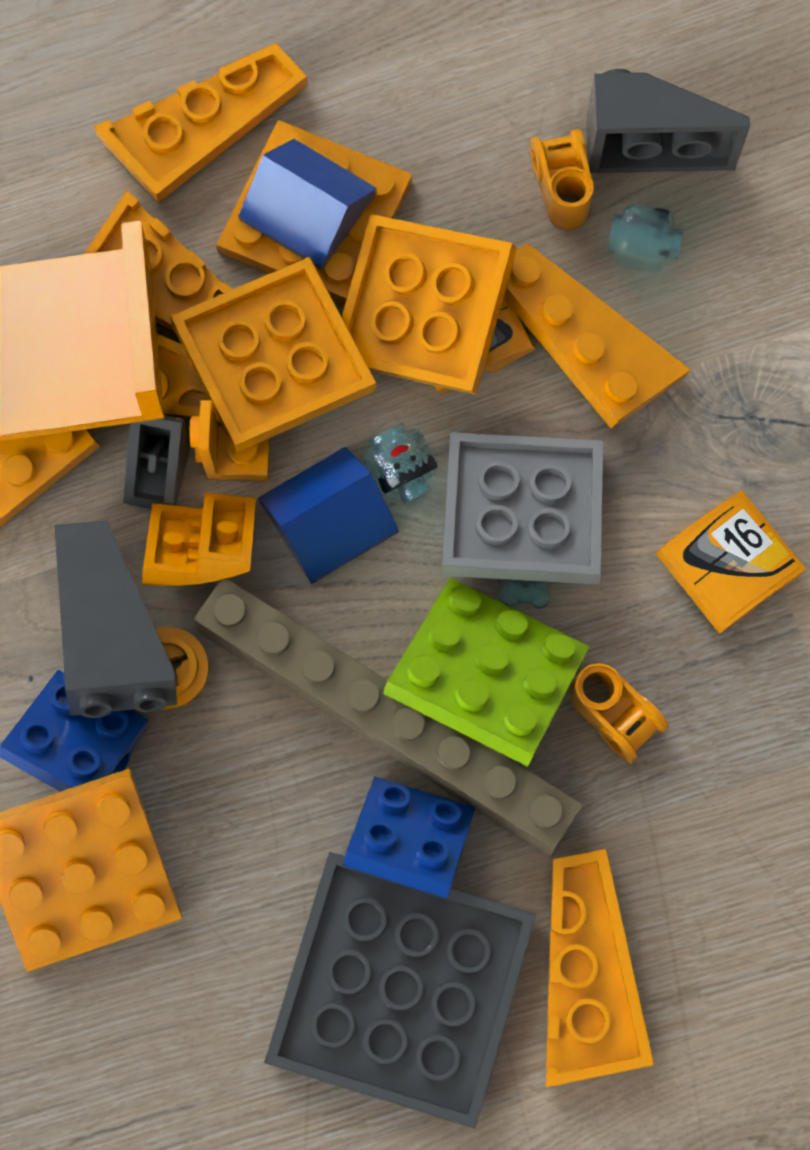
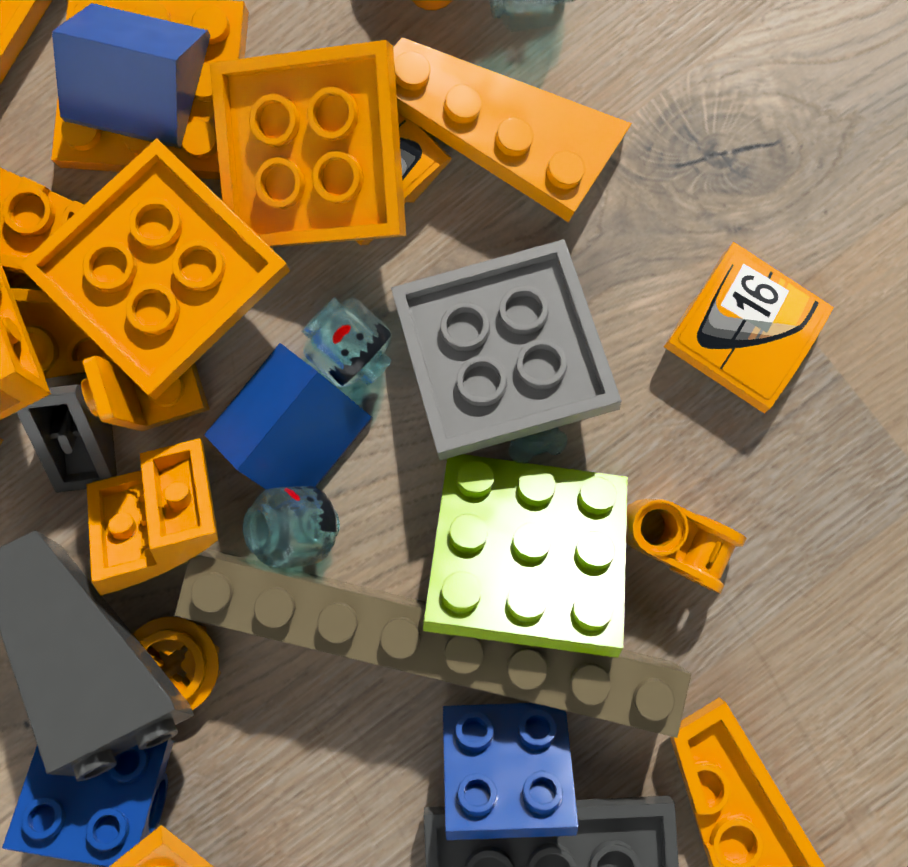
camera: 20 degrees left, 10 degrees up
(305, 588) = (291, 526): none -> clear light blue head

